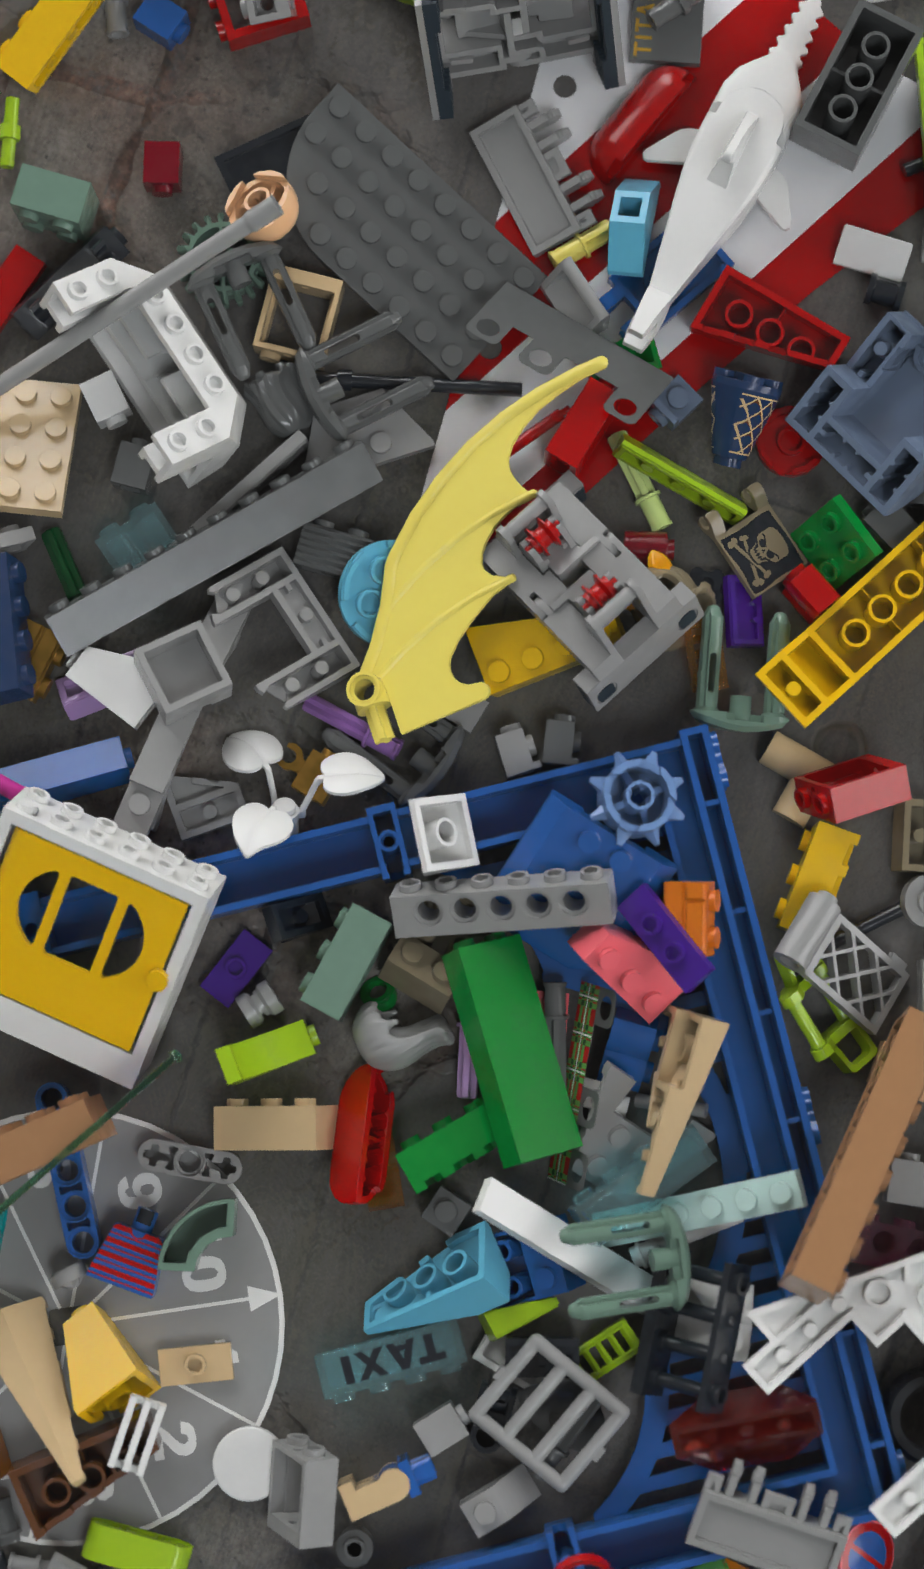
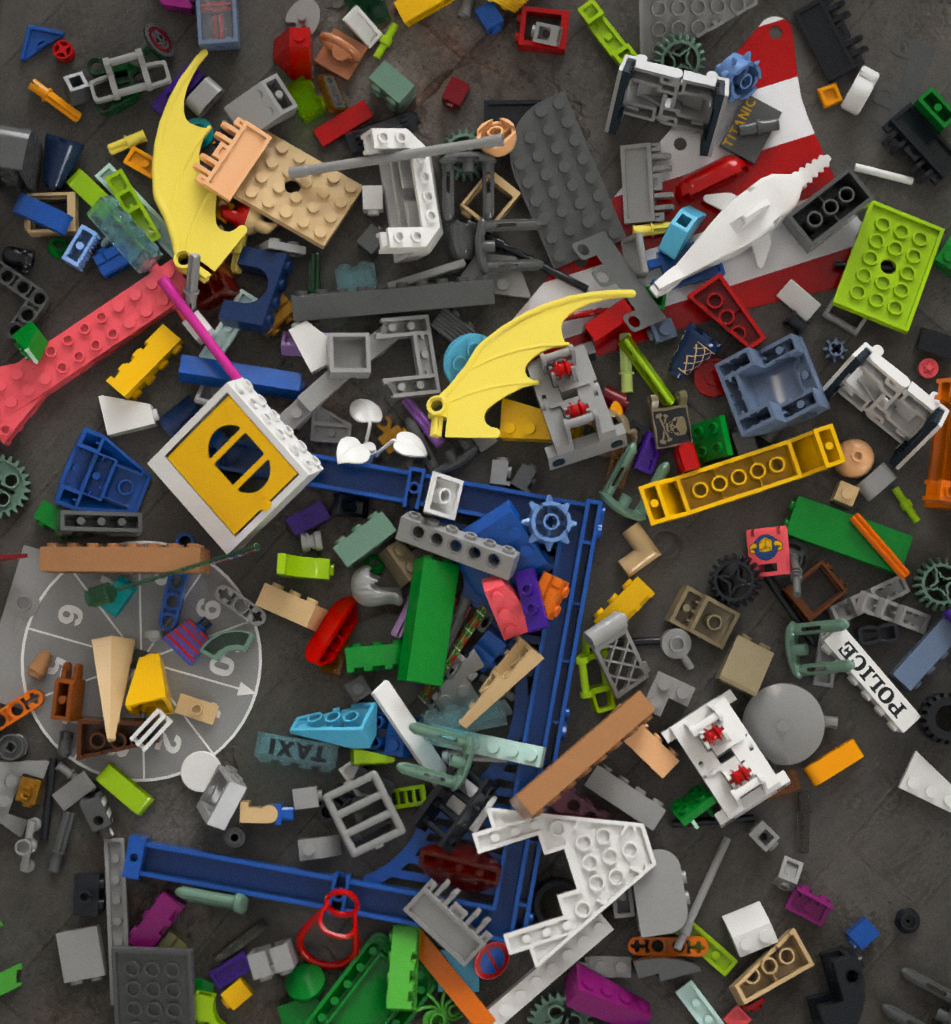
camera: 15 degrees right, 0 degrees up
(852, 788) = (662, 567): red window -> none

